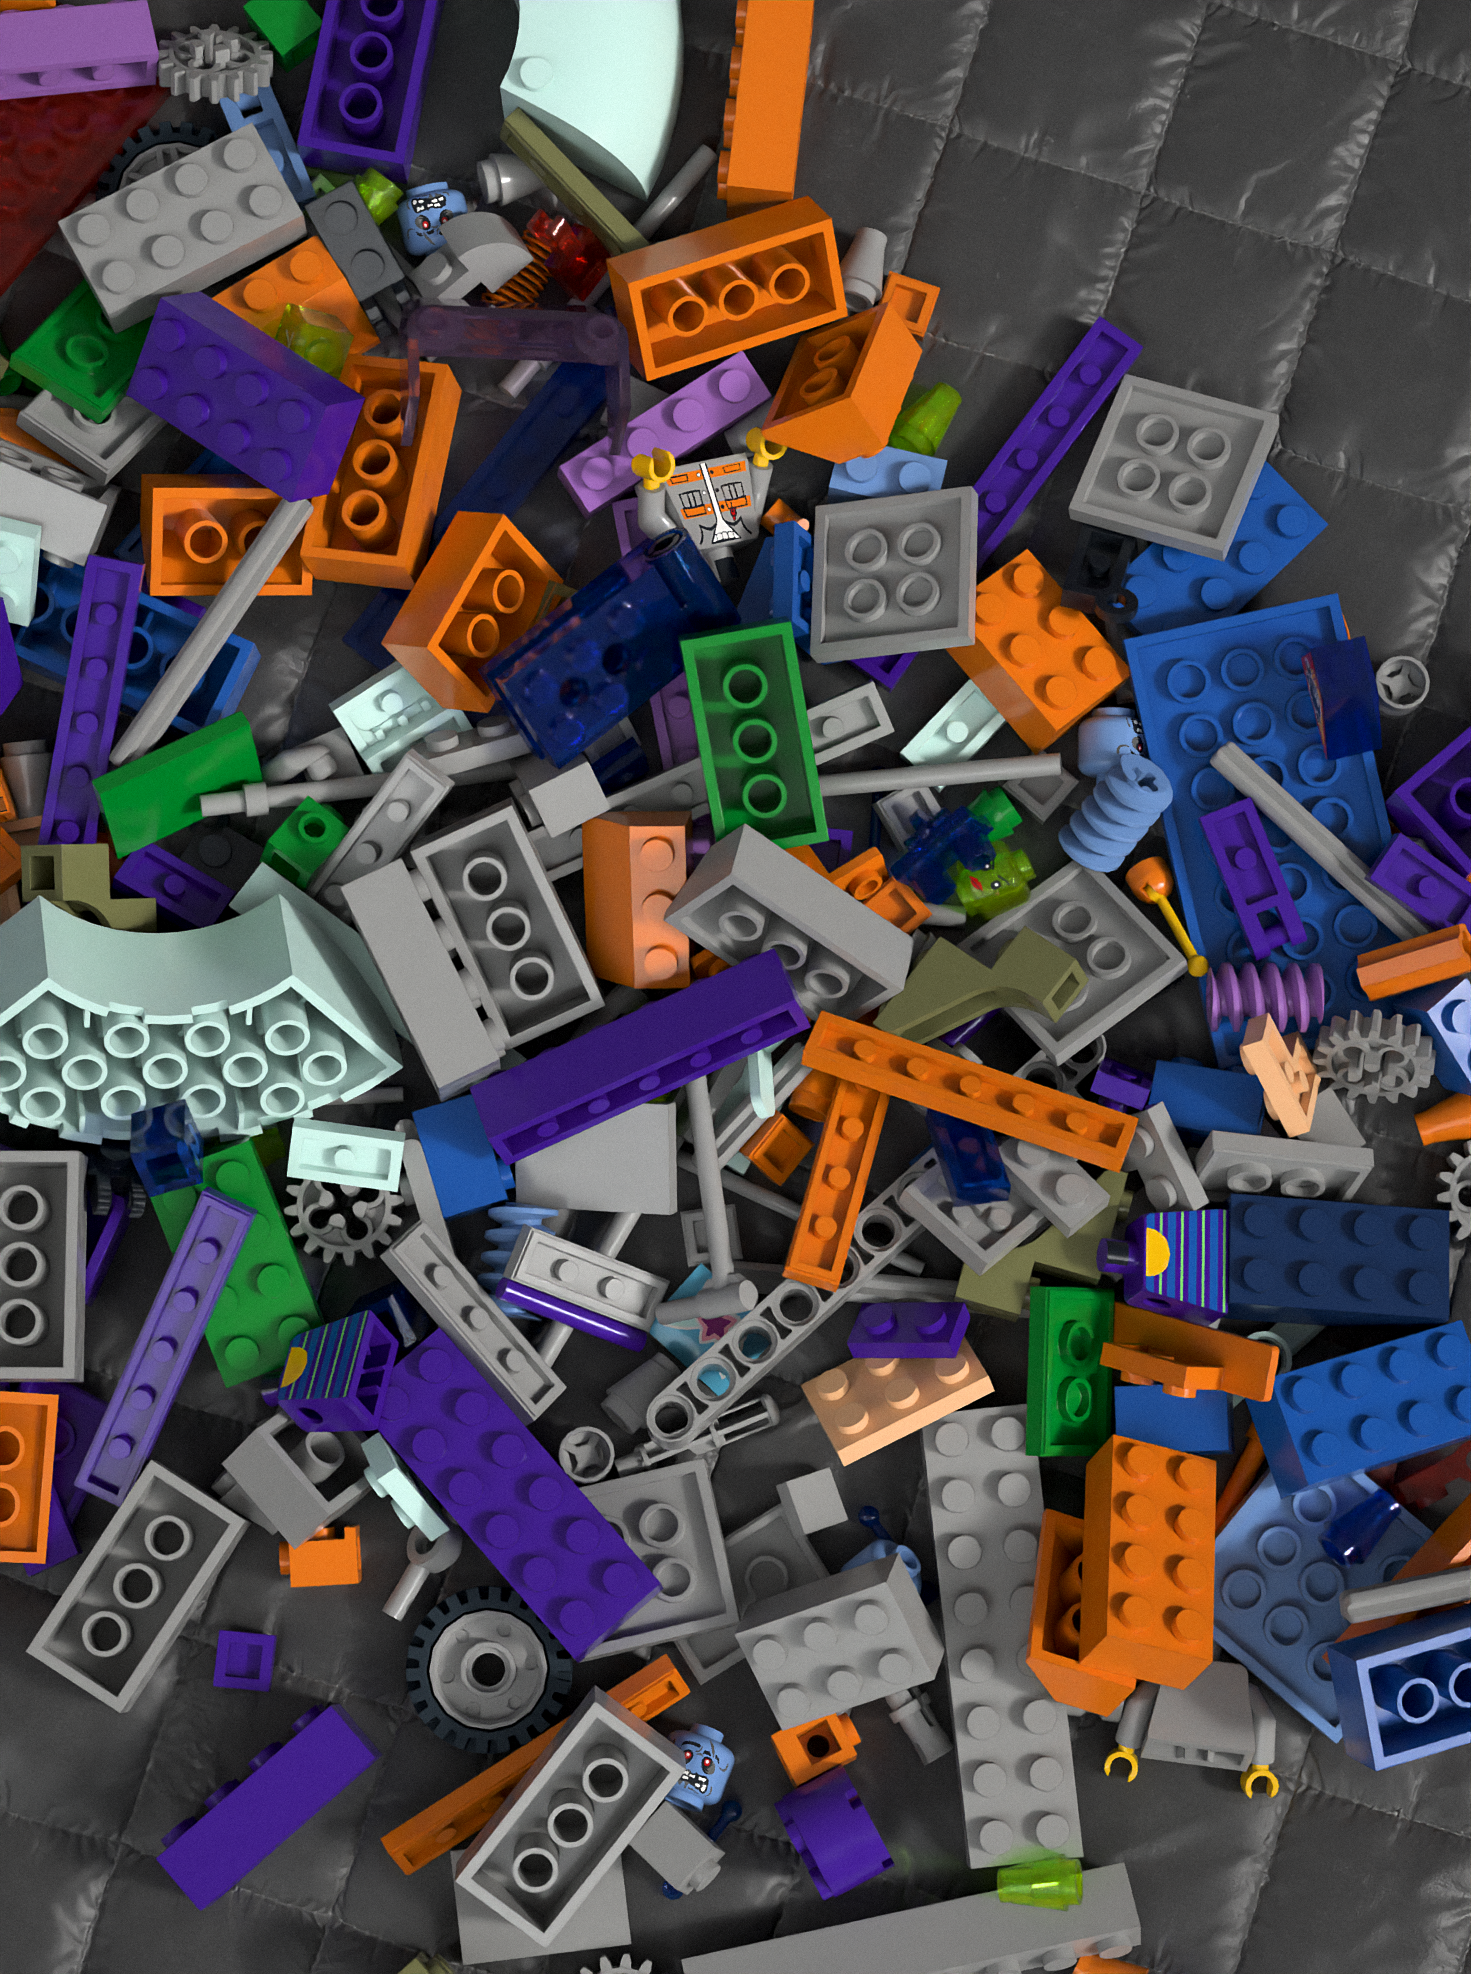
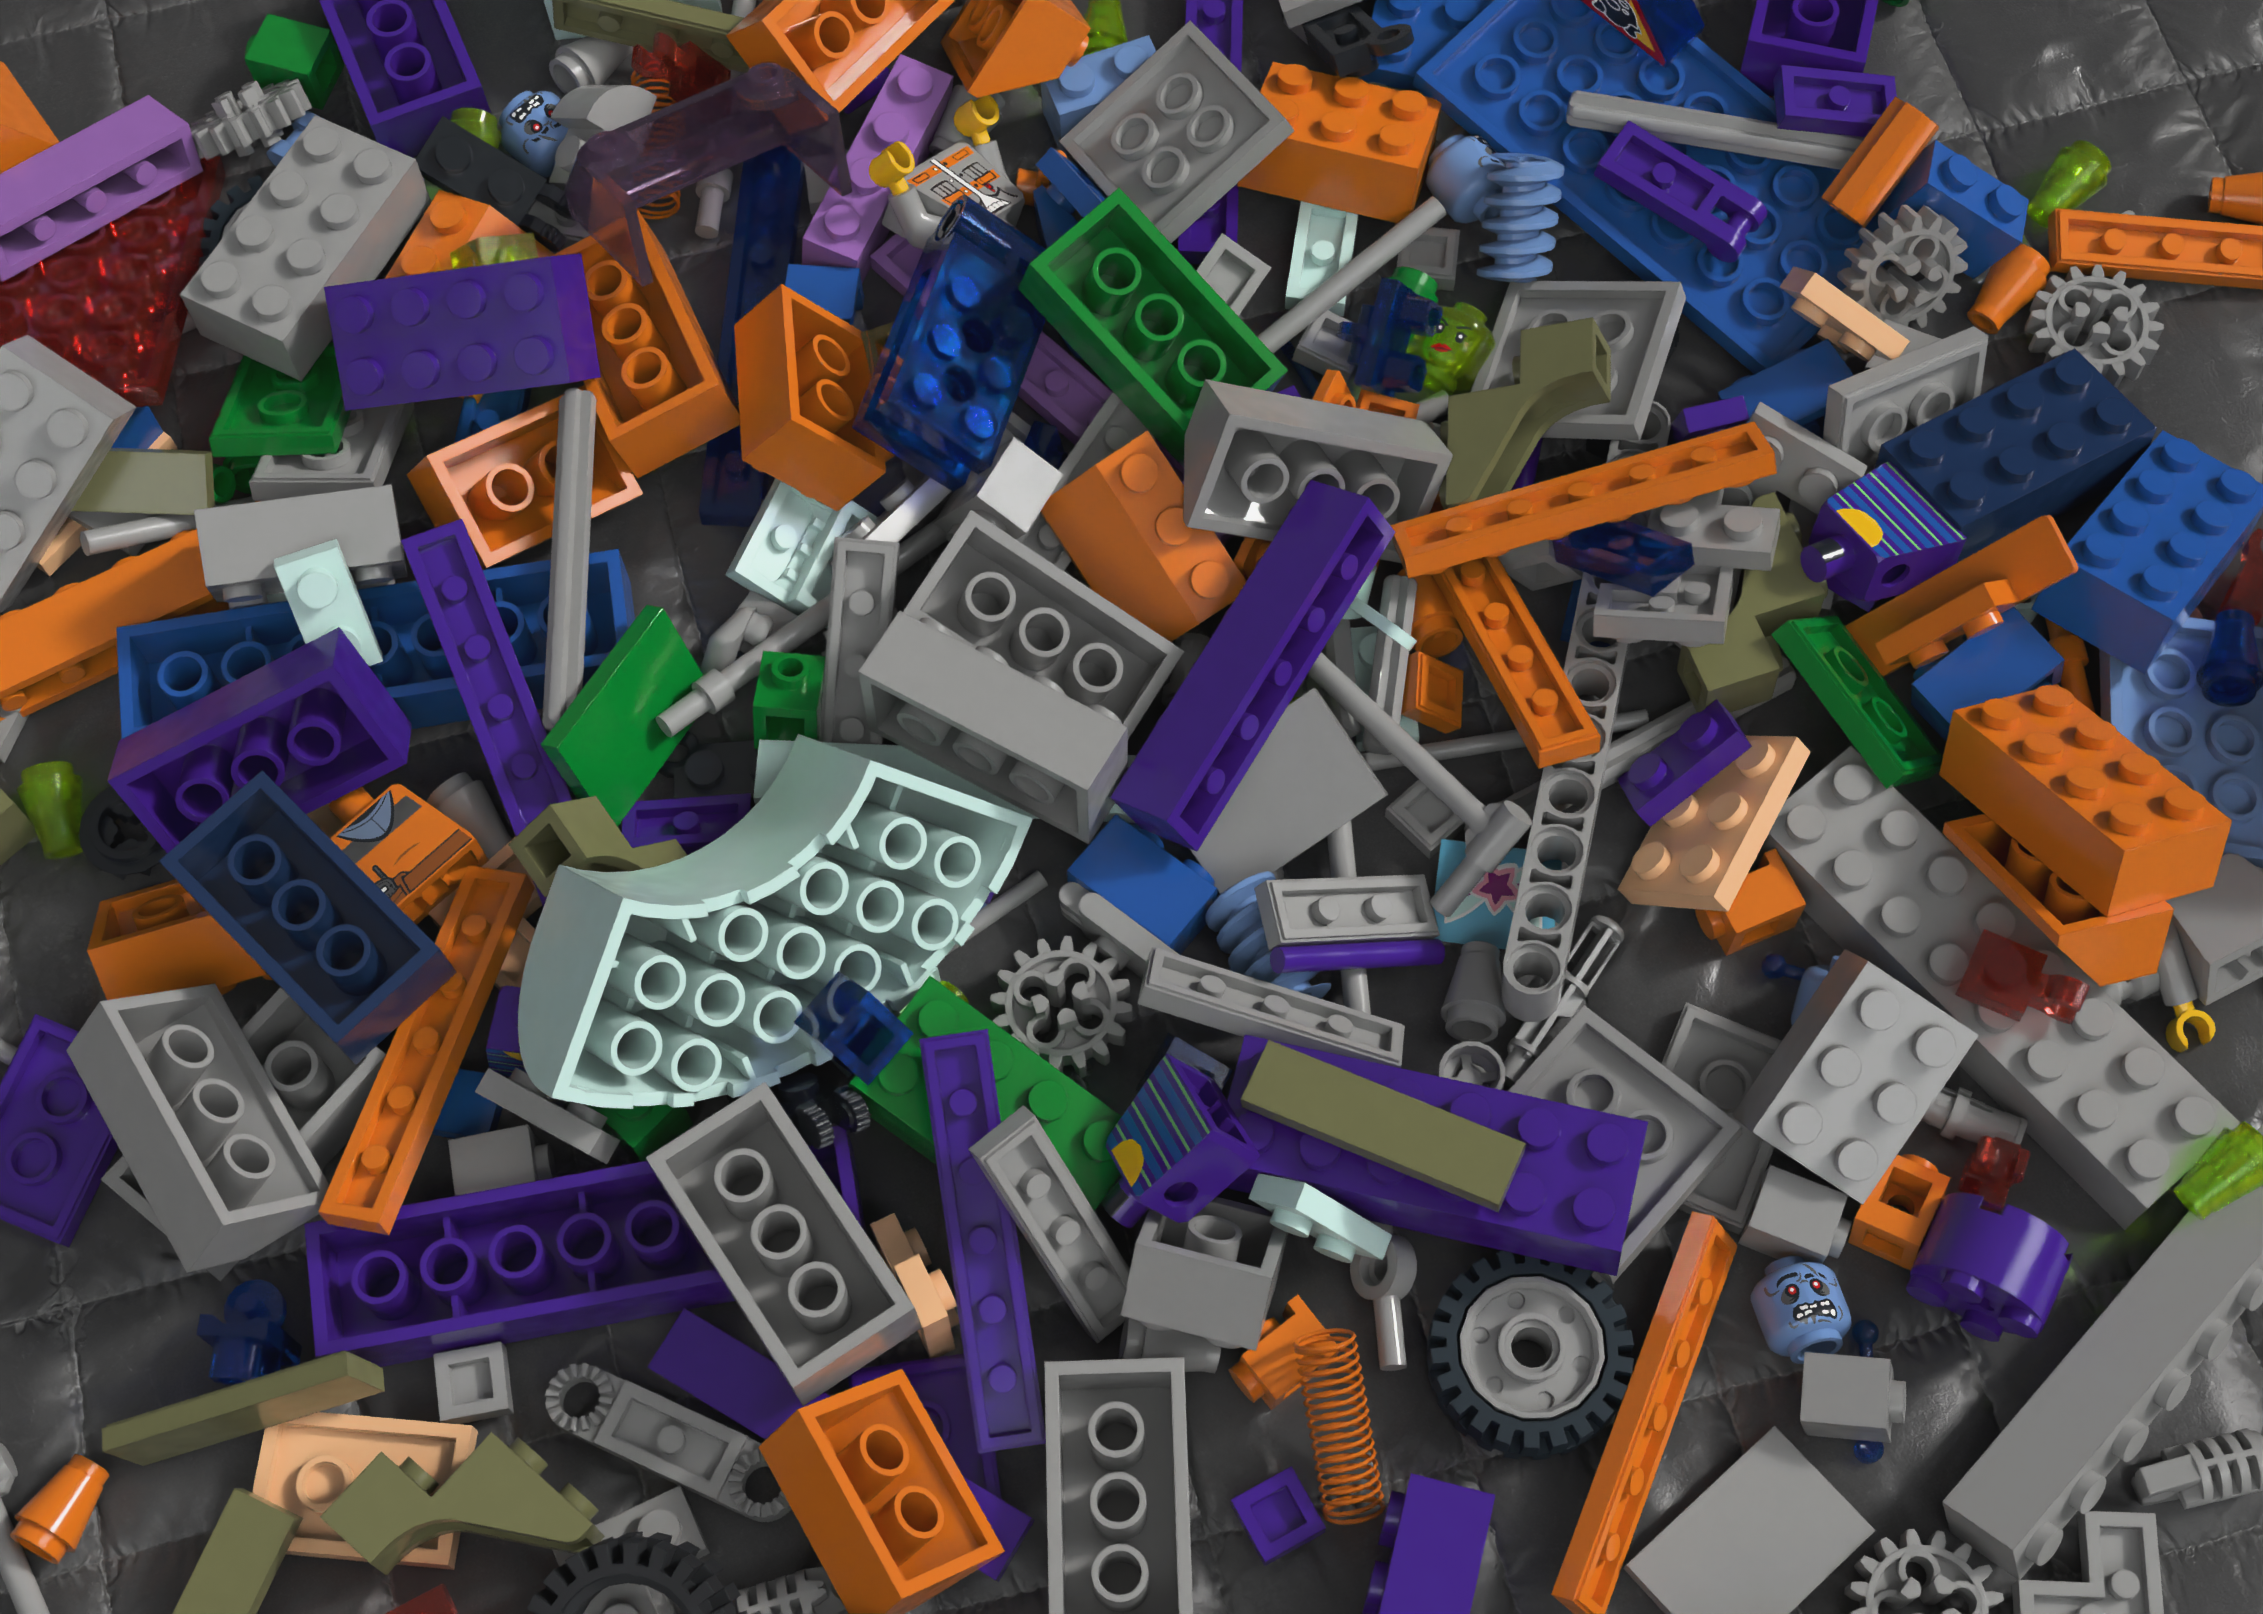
camera: 30 degrees left, 15 degrees down
(104, 1352) = (928, 1293): none -> light nougat plate
(219, 1370) = (1055, 1220): none -> light grey tile
(334, 1586) = (1342, 1468): none -> orange piece
(345, 1154) = (1032, 944): light aqua plate -> none
(477, 1463) = (1383, 1125): none -> olive tile
(548, 518) = (829, 287): none -> blue panel
(570, 1817) = (1731, 1423): light grey brick -> none
(737, 1706) = (1796, 1218): none -> light grey brick
(812, 1502) = (1714, 985): light grey tile -> none
(886, 1469) = (1762, 908): none -> orange brick
(892, 1769) = (1993, 1171): none -> clear red plate
(996, 1651) = (2009, 978): none -> clear red plate
(1152, 884) = (1594, 263): hinge -> none
(1269, 993) = (1749, 284): medium lavender piece -> none

